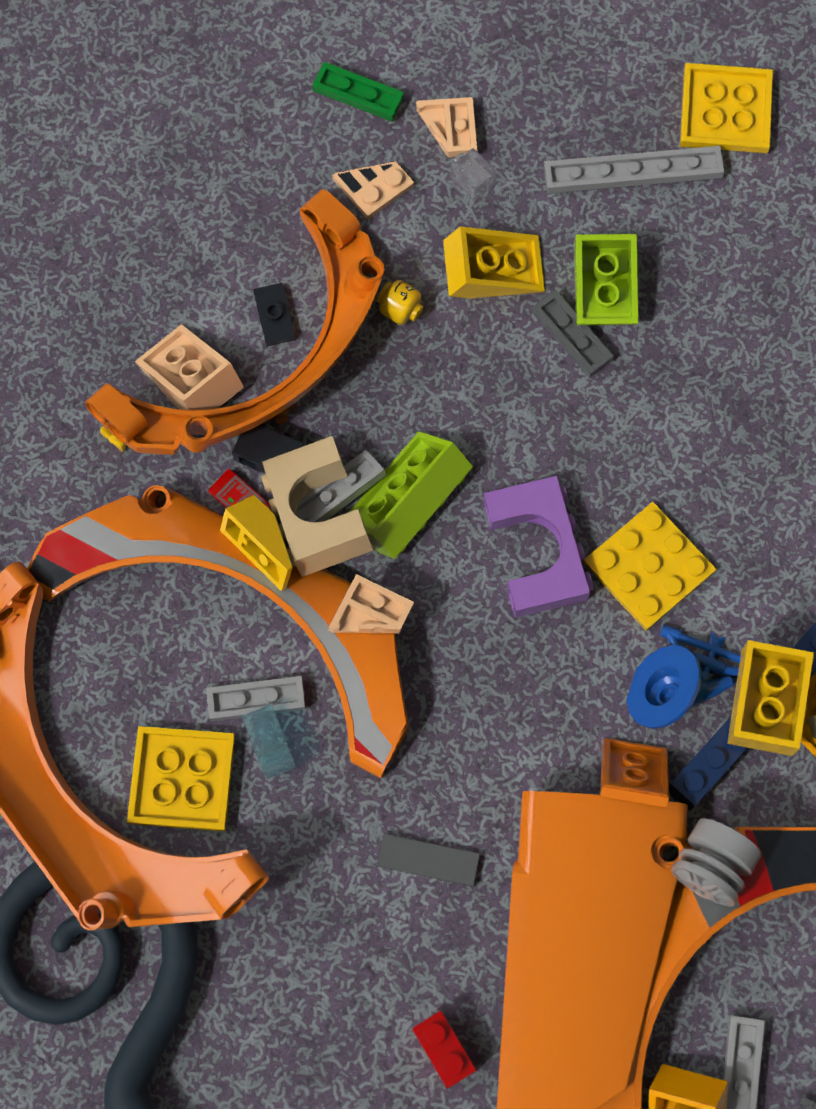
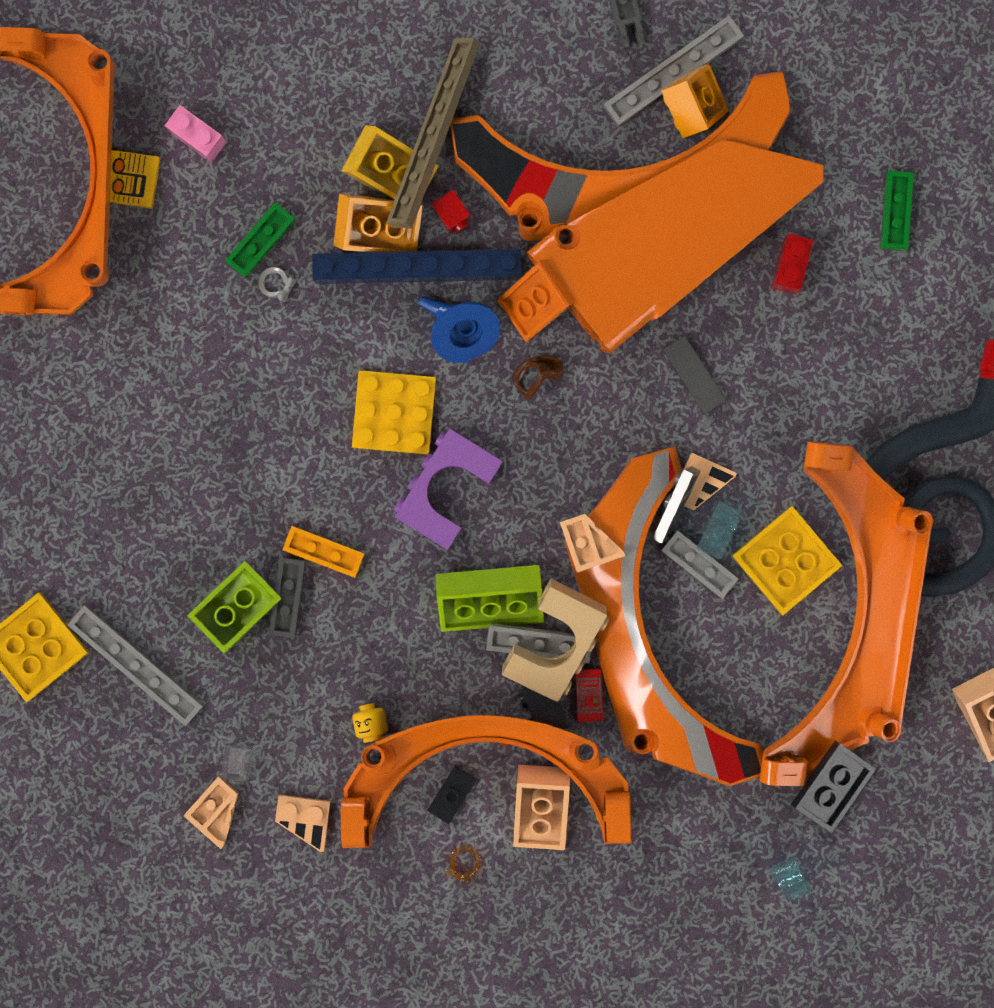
camera: 135 degrees left, 15 degrees up
(212, 258) = (452, 871): none -> clear orange piece
(258, 536) = (608, 658): yellow slope -> none
(327, 771) = (709, 481): none -> light nougat wing
(329, 724) = (675, 503): none -> plate
(358, 91) = (248, 894): green plate -> none
(492, 263) = (287, 690): yellow slope -> none
(561, 731) = (548, 367): none -> reddish brown piece
(583, 397) = (323, 551): none -> light orange plate
(714, 647) = (408, 329): blue piece -> none
(716, 862) = (551, 201): light grey wheel -> none
(770, 698) = (420, 258): yellow brick -> none
(787, 781) = (451, 212): none -> red brick

